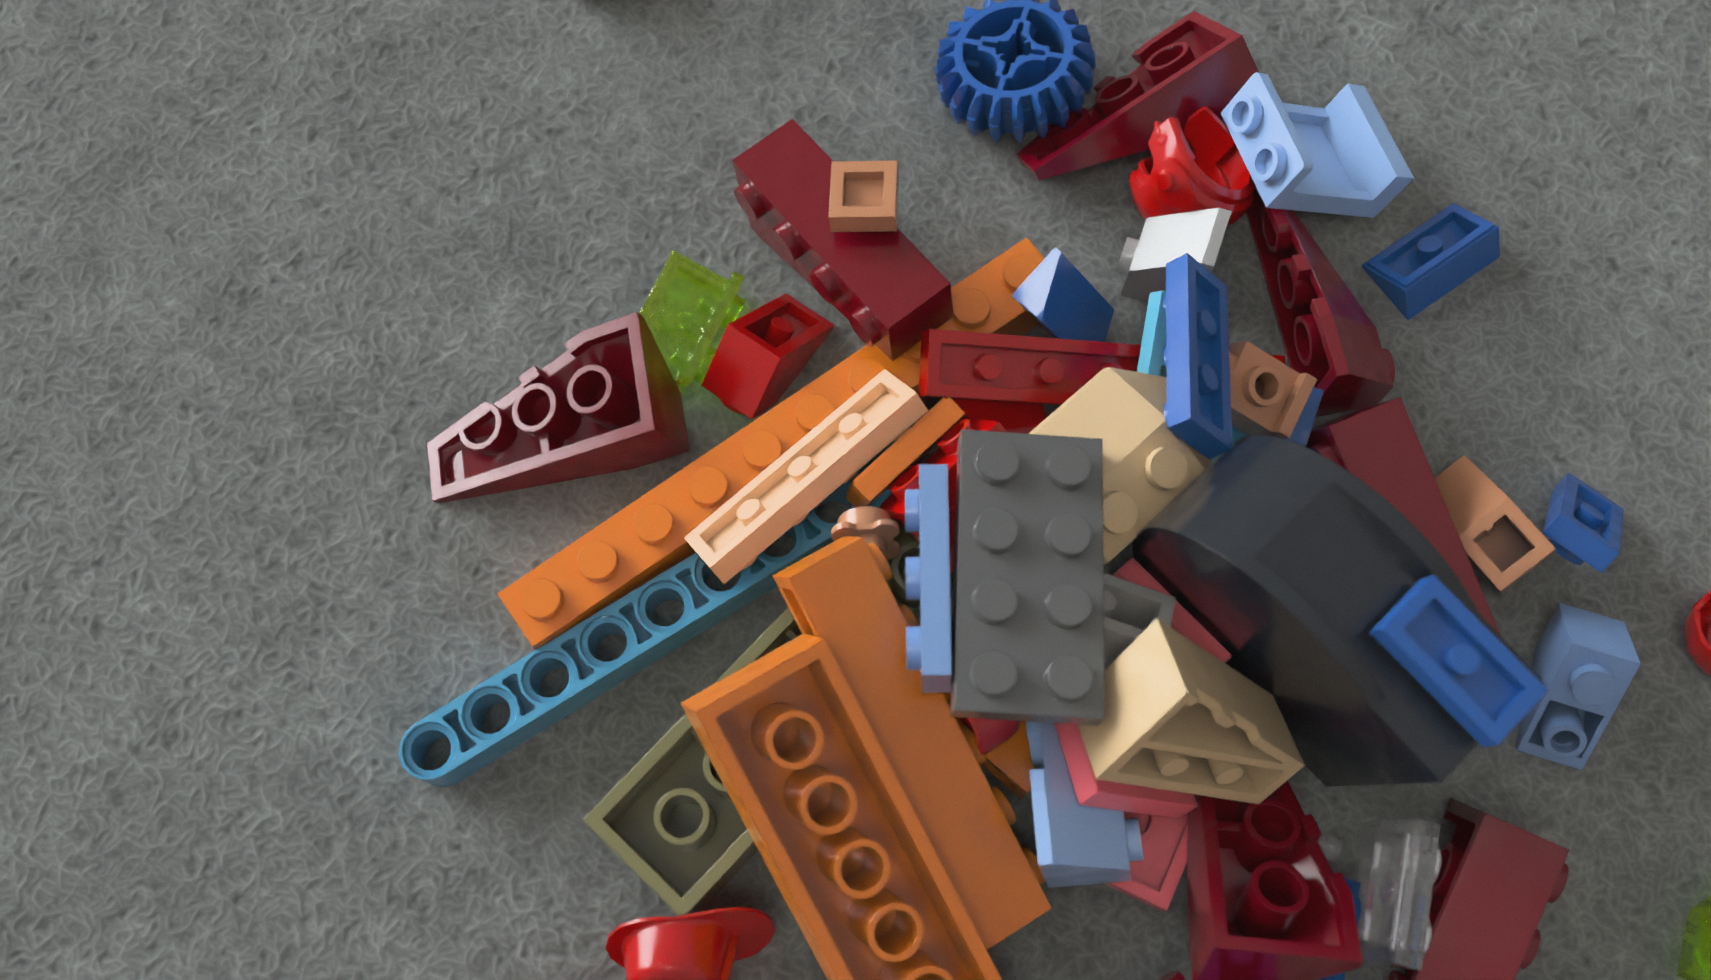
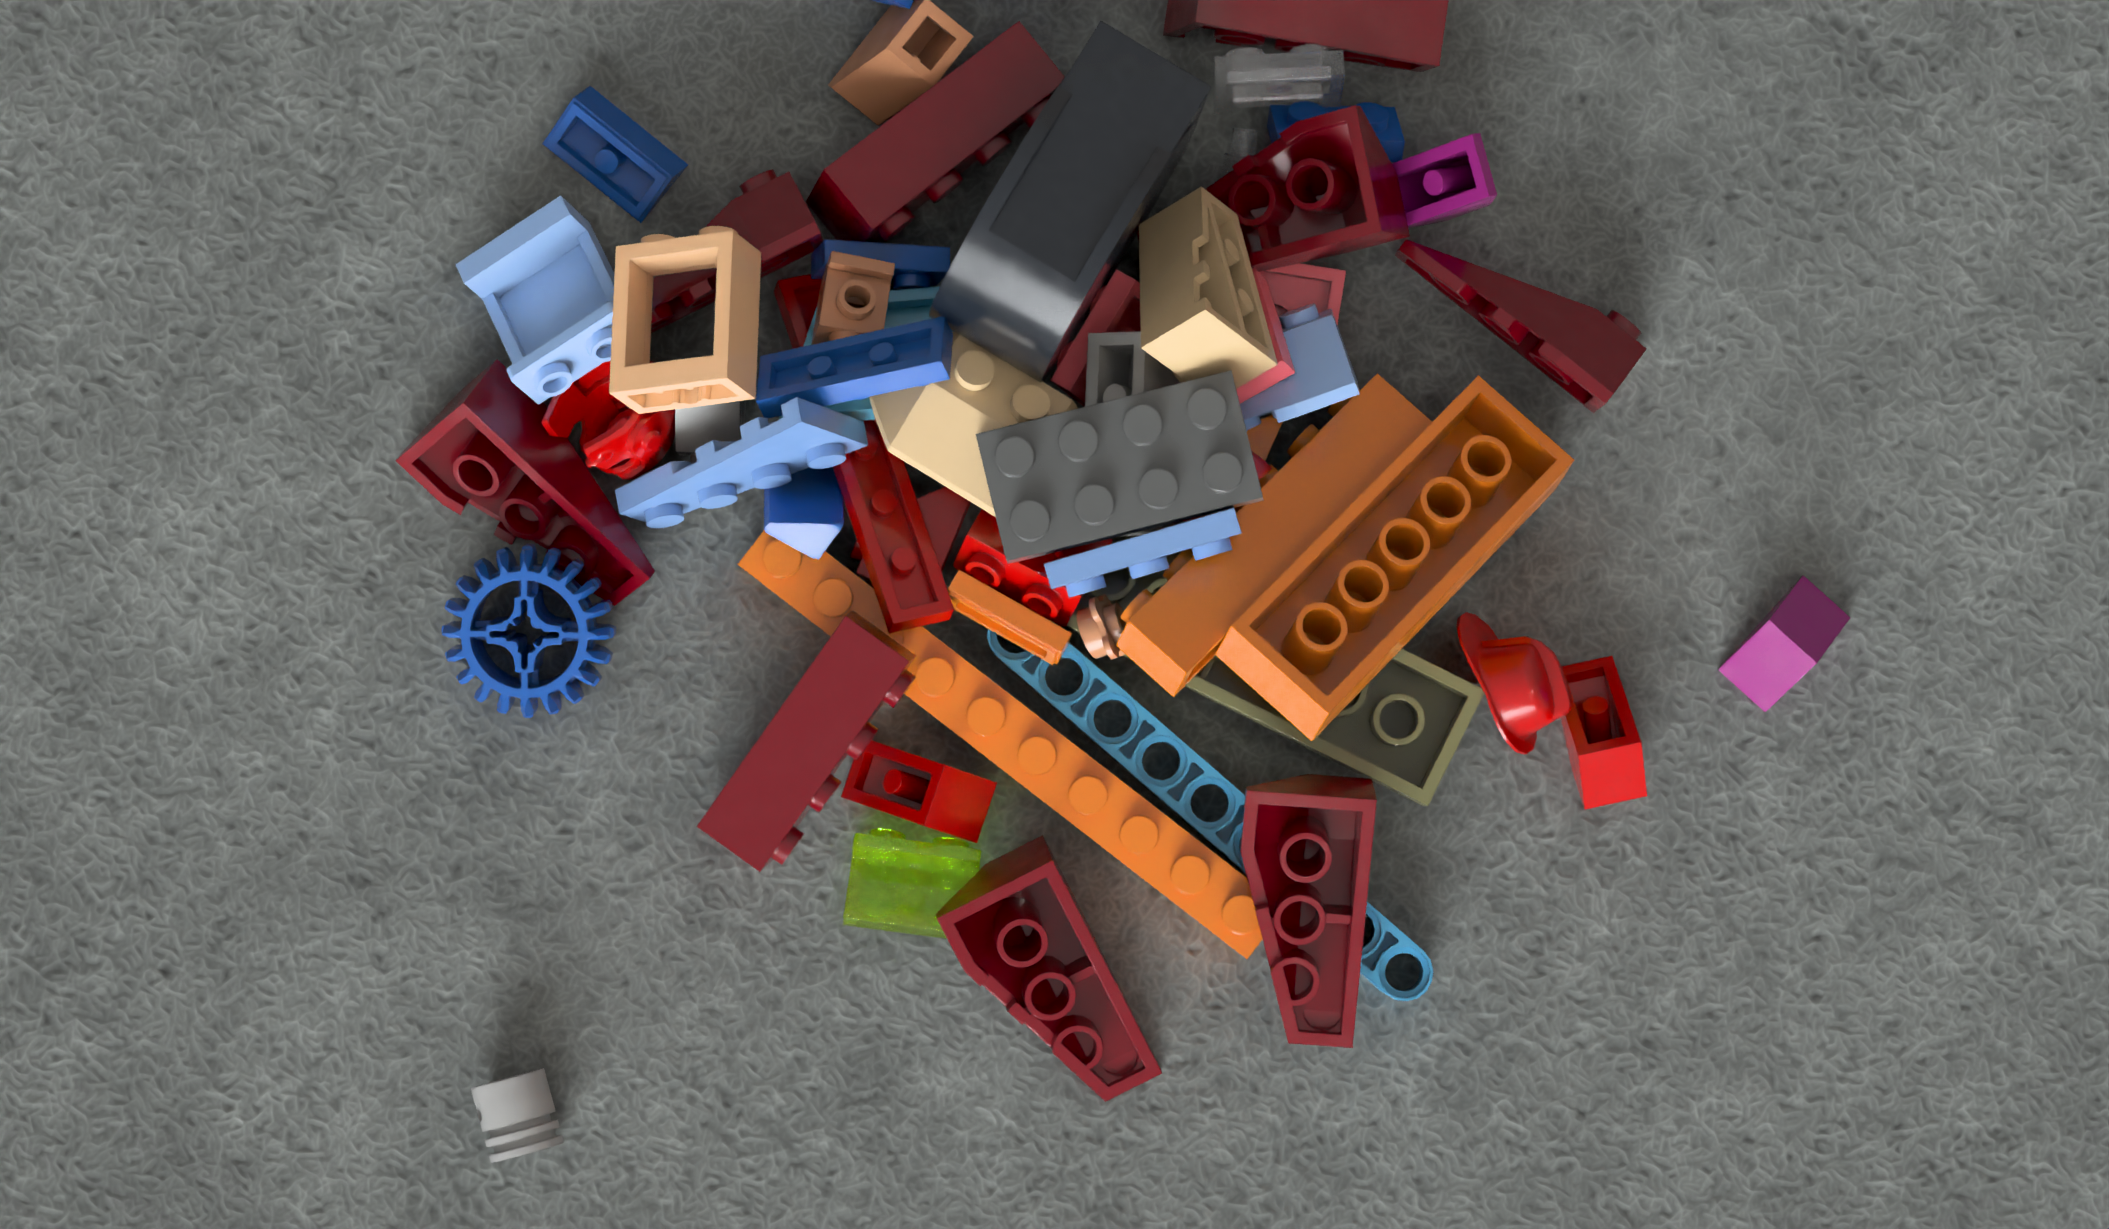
camera: 110 degrees left, 15 degrees up
(554, 671) = (1309, 883): none -> dark red wedge
(806, 475) = (1055, 703): light nougat plate -> none
(863, 196) = (782, 722): nougat plate -> none
(1127, 261) = (760, 460): none -> medium blue wing
(1270, 253) = (695, 381): none -> light nougat window
(1459, 661) = (1115, 97): blue plate -> none

